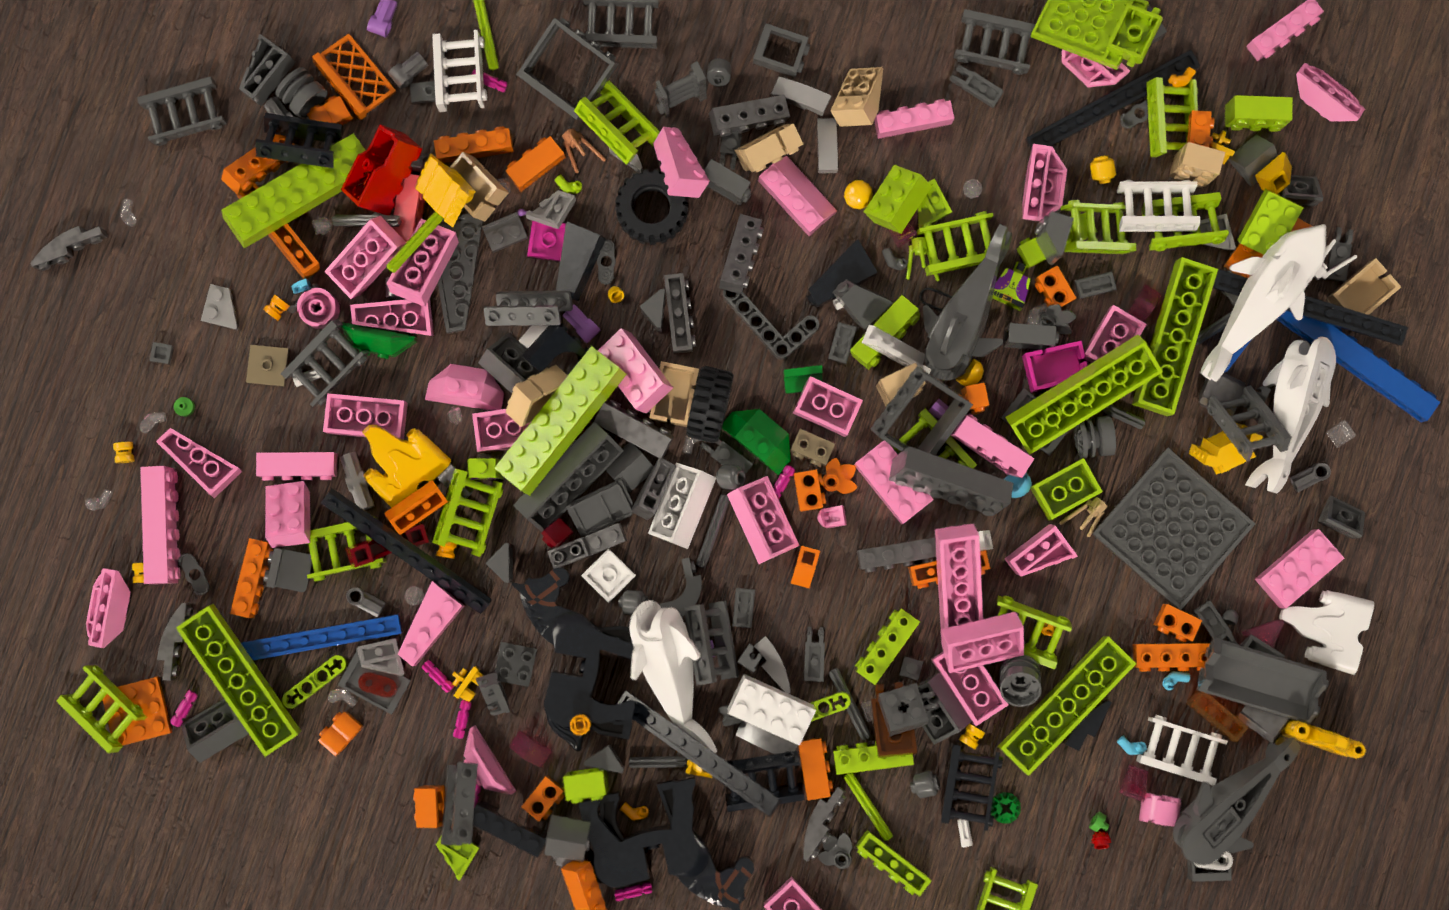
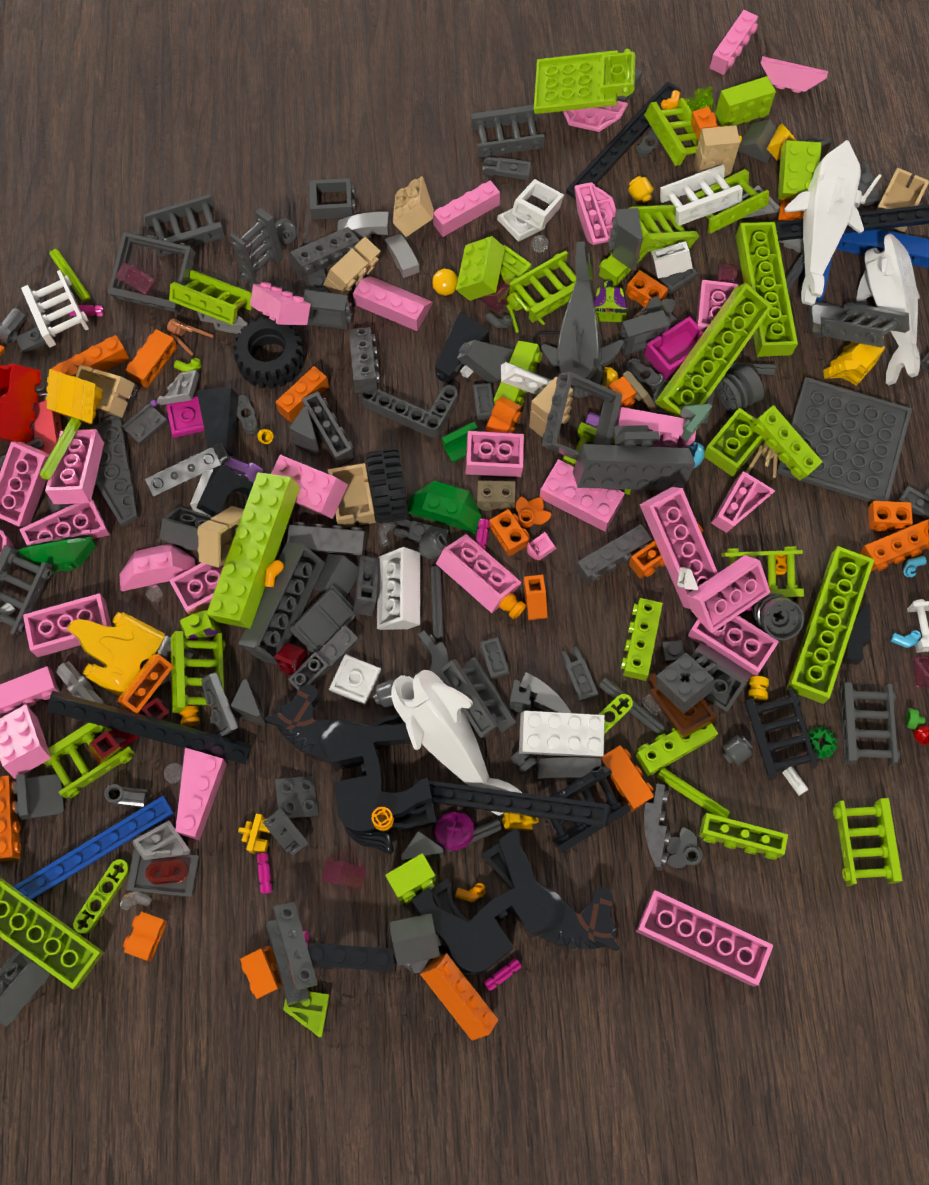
camera: 20 degrees left, 15 degrees down
(437, 676) = (224, 840): dark pink axle -> none
(474, 562) = (221, 713): none -> dark grey wing
(489, 771) = (310, 912): bright pink wedge -> none
(540, 795) = (369, 915): orange brick -> none
(546, 71) = (134, 278): none -> clear pink slope
(569, 450) = (272, 571): none -> light orange arm
(642, 752) = (454, 831): none -> magenta tile
(667, 264) = (291, 402): none -> orange brick
(781, 565) = (512, 606): none -> light orange wheel
(852, 373) = (504, 416): none -> orange brick
(946, 617) = (686, 579): none -> white slope
(964, 156) = (517, 227): none -> white plate
(965, 453) = (634, 435): none -> dark grey bracket
(975, 155) = (538, 216): none -> white window
(996, 401) = (641, 394): none -> dark tan plate
(1007, 368) = (636, 368): none -> dark grey piece
(1034, 457) = (695, 416): none -> sand green slope
(1036, 812) = (851, 733): none -> dark grey fence
(1094, 268) = (671, 260): none -> white slope
(1110, 514) = (786, 443): none -> lime brick
(1216, 89) = (702, 99): none -> clear neon green hips

